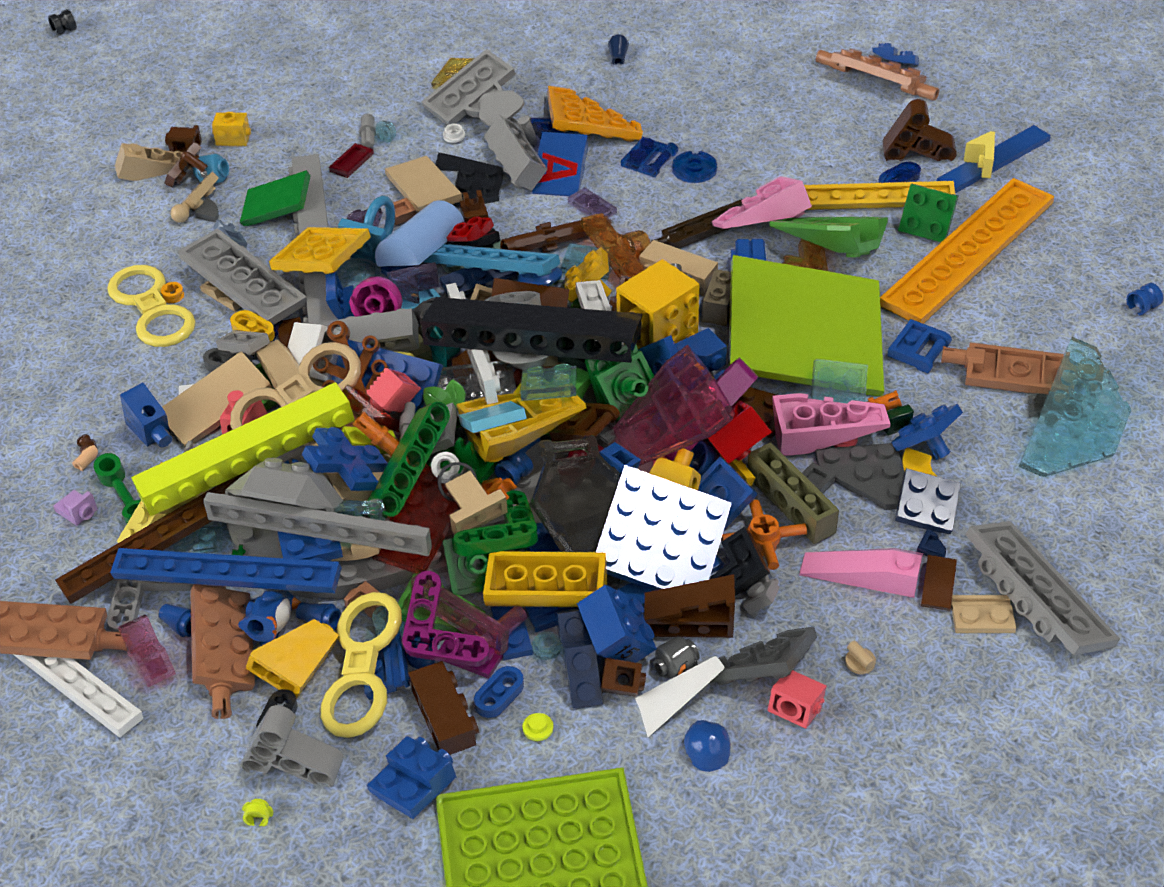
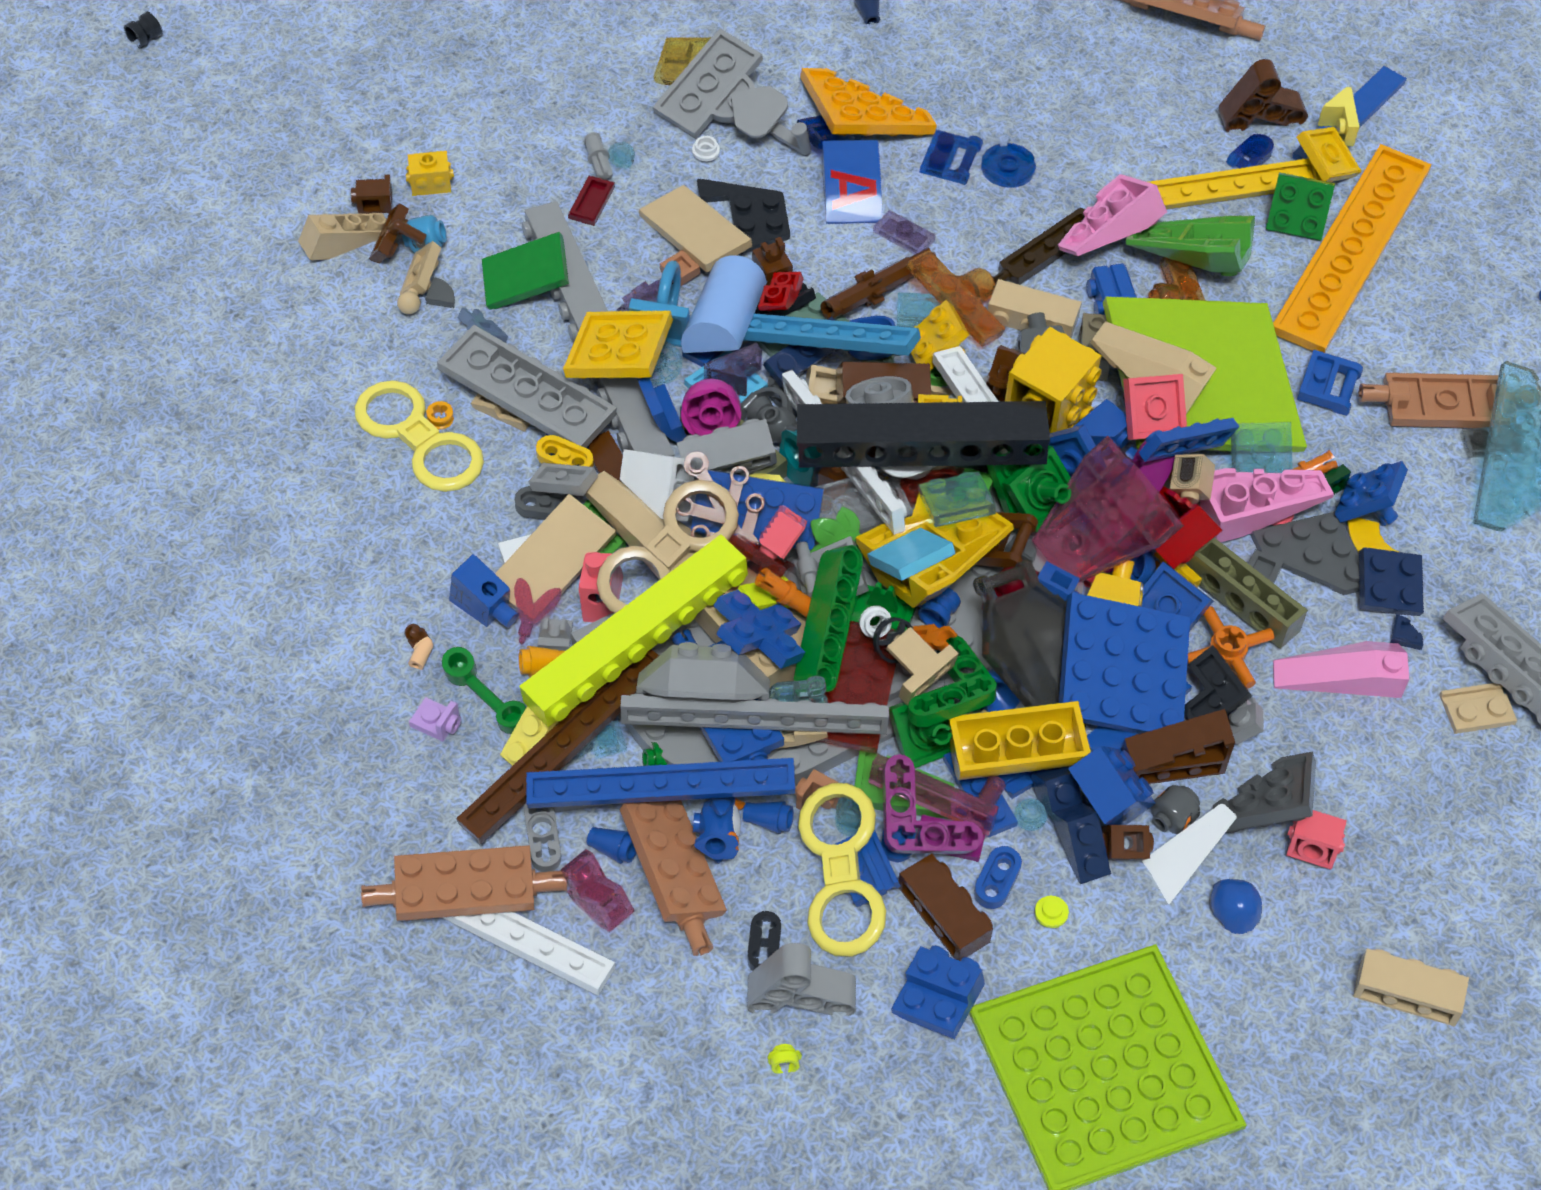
camera: 15 degrees left, 10 degrees up
(182, 434) = (529, 612): none -> clear pink piece
(293, 657) = (766, 874): yellow slope -> none
(515, 153) = (795, 173): light grey brick -> none
(746, 335) = (1154, 404): none -> coral tile
(764, 315) = (1146, 357): none -> tan wedge
(765, 394) = (1193, 477): none -> tan brick
(766, 363) = (1188, 439): none -> blue plate
(849, 838) = (1411, 986): none -> tan brick
(859, 659) = (1366, 781): tan plate -> none
(938, 583) = (1425, 678): reddish brown slope -> none
(964, 179) = (1328, 154): none -> yellow plate

